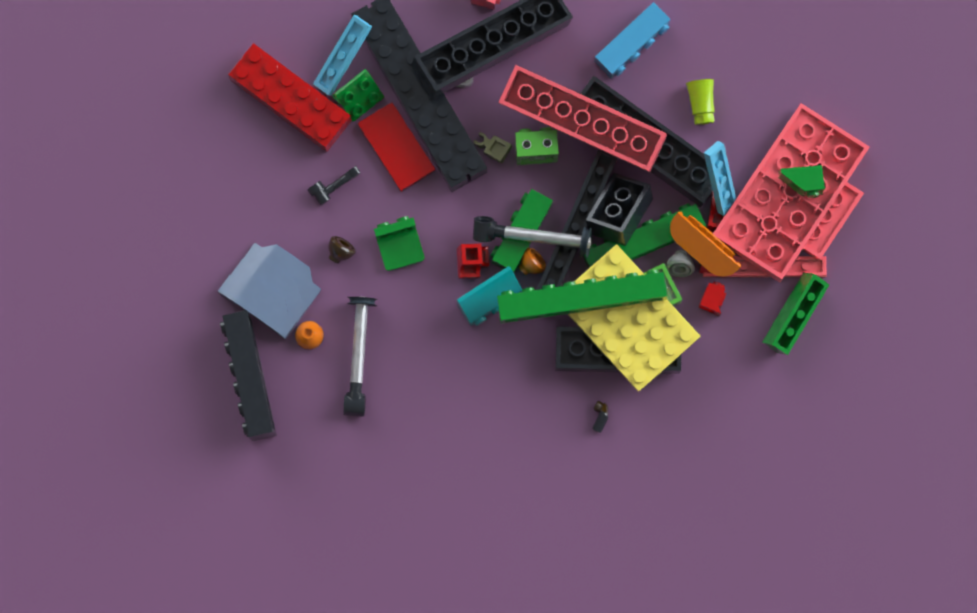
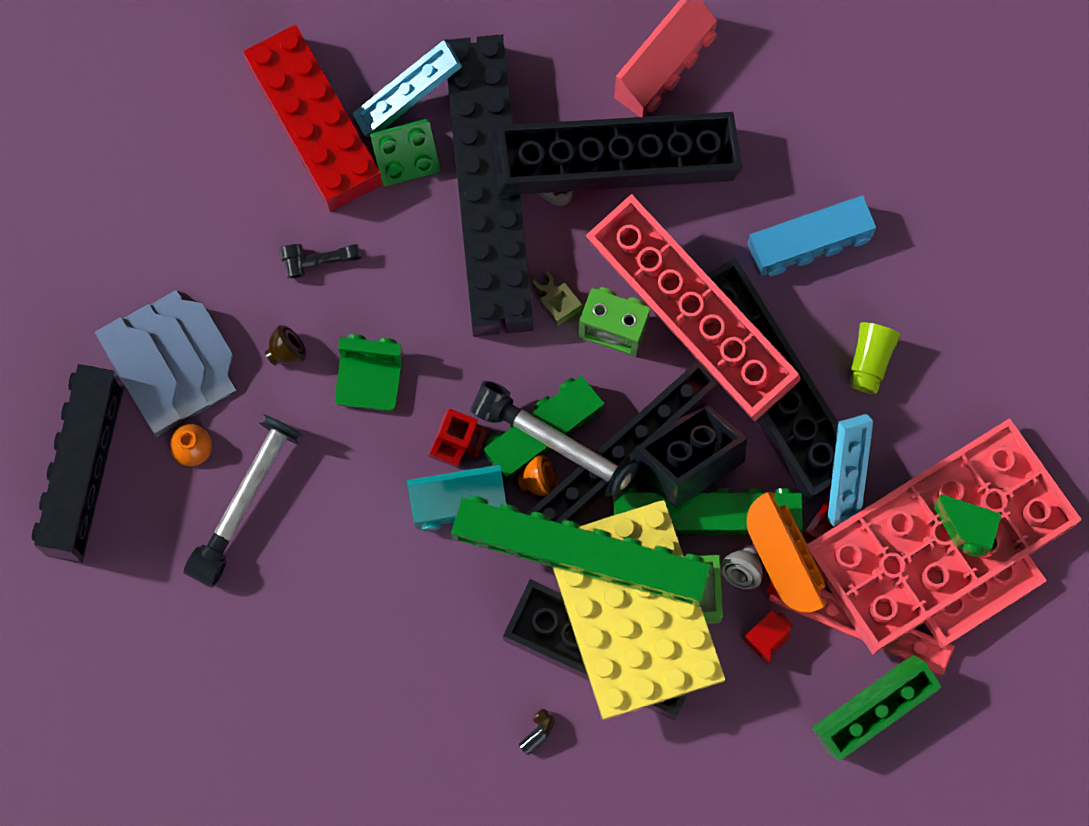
camera: 25 degrees right, 5 degrees down
(396, 146) = (426, 243): red tile -> none

